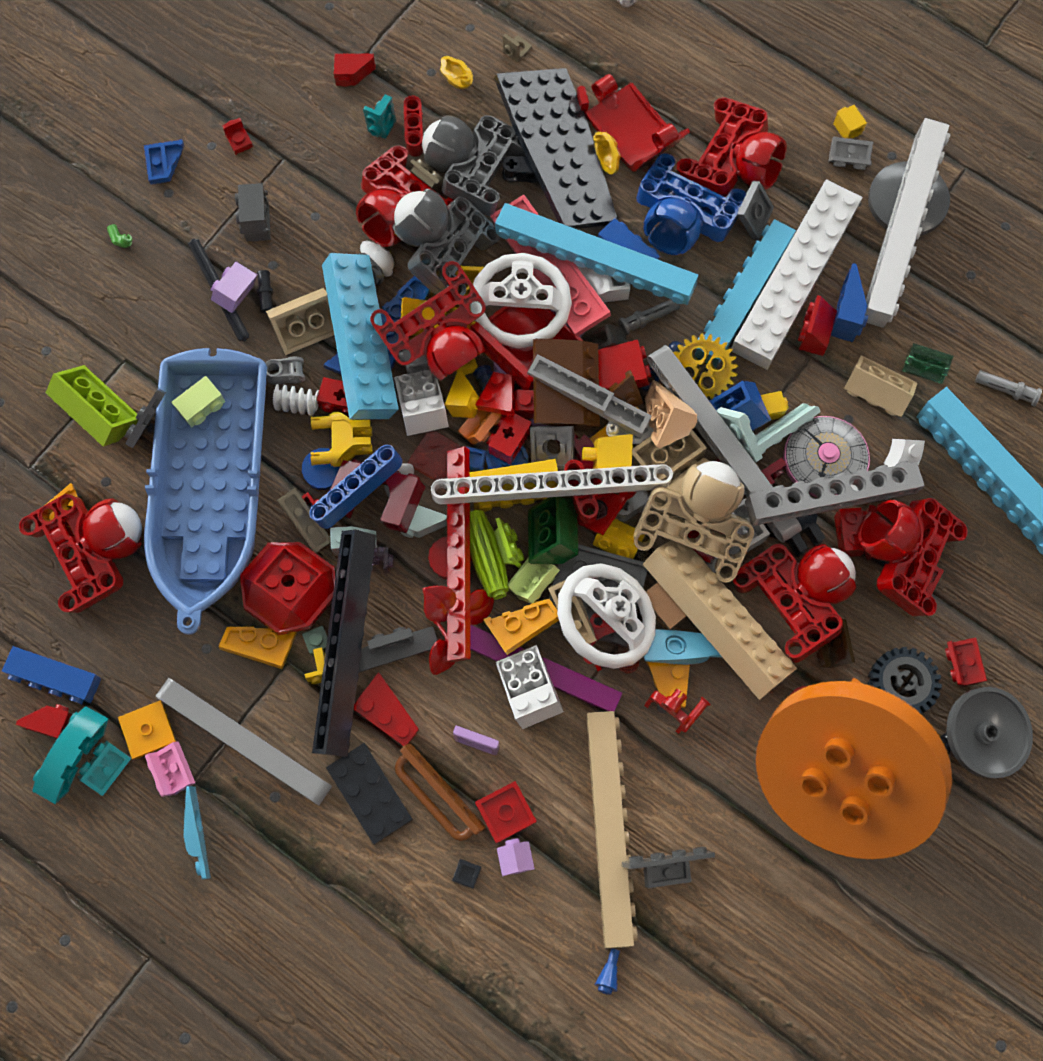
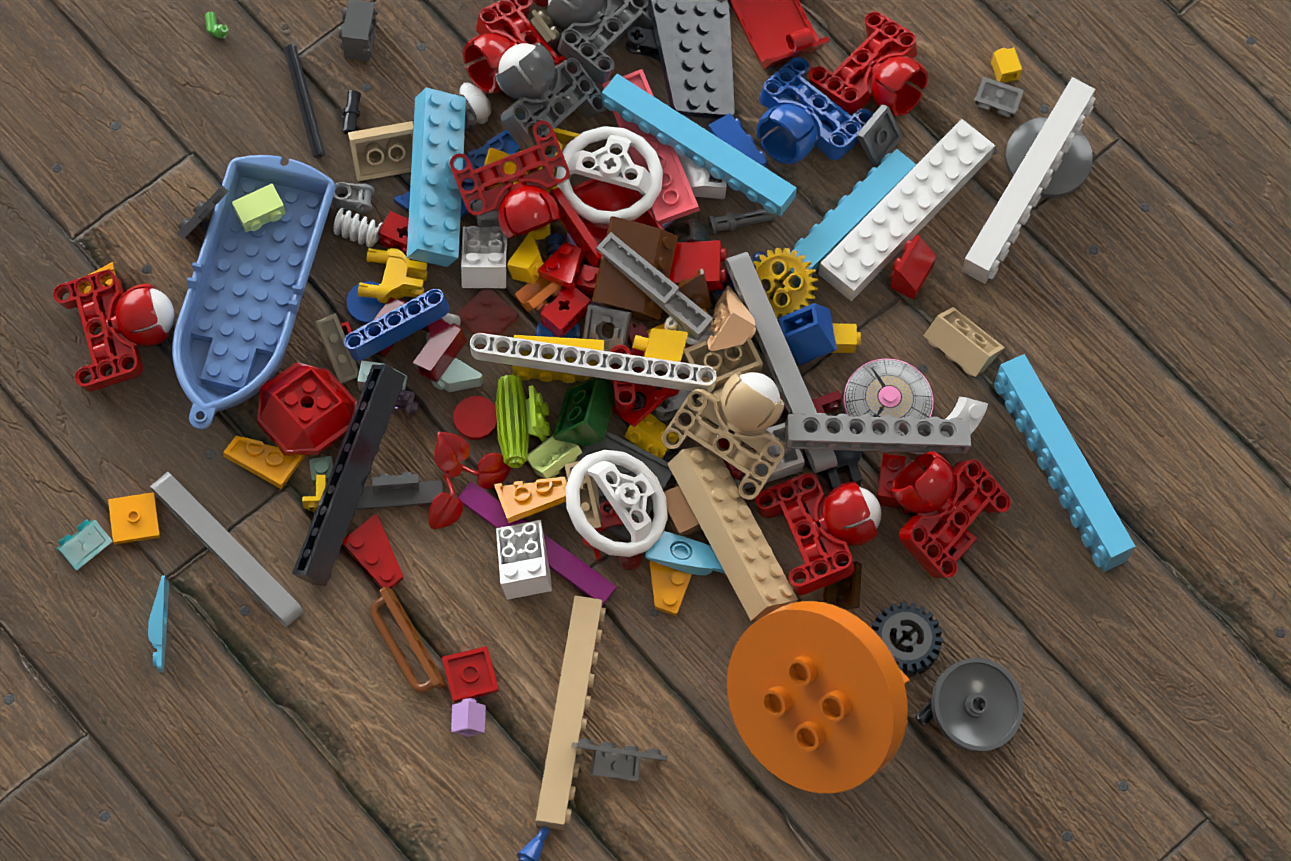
camera: 10 degrees right, 5 degrees down
(47, 720) = (39, 488): red slope -> none
(51, 675) = (52, 444): blue brick -> none
(60, 767) = (41, 531): teal brick -> none
(91, 404) = (150, 189): lime slope -> none
(170, 770) = (148, 560): bright pink bracket -> none
(233, 286) = (320, 101): lavender brick -> none
(369, 794) = (339, 627): black piece -> none
(458, 561) = (482, 422): plate -> none
(466, 873) = (417, 724): black tile -> none
(476, 740) = (457, 597): lavender tile -> none
(477, 459) = (524, 325): blue tile -> none
(607, 152) = (741, 43): yellow arm -> none
(672, 705) = (660, 604): red piece -> none
(757, 444) = (814, 374): light aqua bracket -> none
(850, 308) = (947, 263): blue slope -> none
(927, 363) = (1019, 329): clear green hinge -> none
(966, 662) = (974, 633): red bracket -> none
(1018, 390) = (1106, 376): light grey pin -> none

